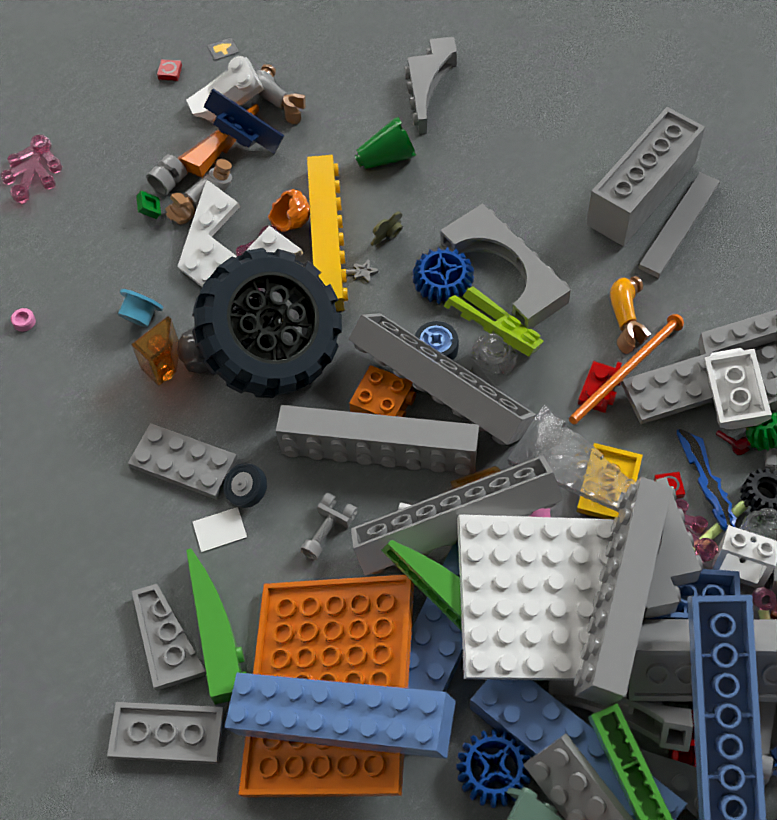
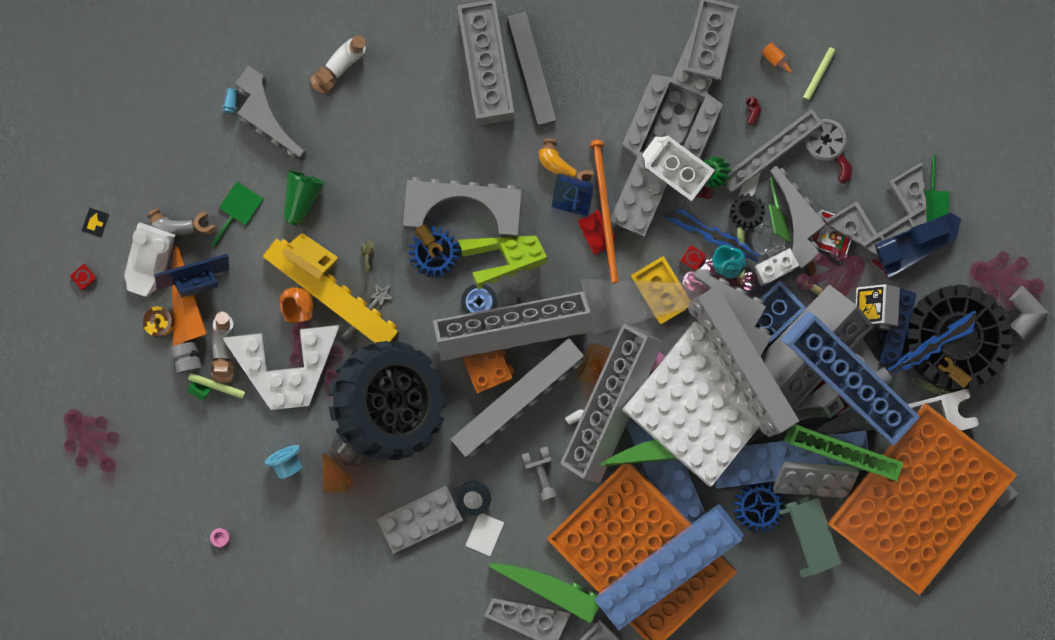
camera: 45 degrees left, 25 degrees up
(161, 213) = (216, 385): none -> yellowish green bar
(180, 138) = (151, 317): none -> reddish brown piece
(333, 122) = (239, 204): none -> green piece
(341, 182) = (308, 254): none -> yellow container
(418, 50) = (230, 101): none -> medium azure pin
(448, 253) = (427, 239): none -> pearl gold bar
(533, 94) = (341, 60): none -> piece
(611, 332) = (572, 195): none -> tile
(702, 511) = (728, 261): none -> teal hair

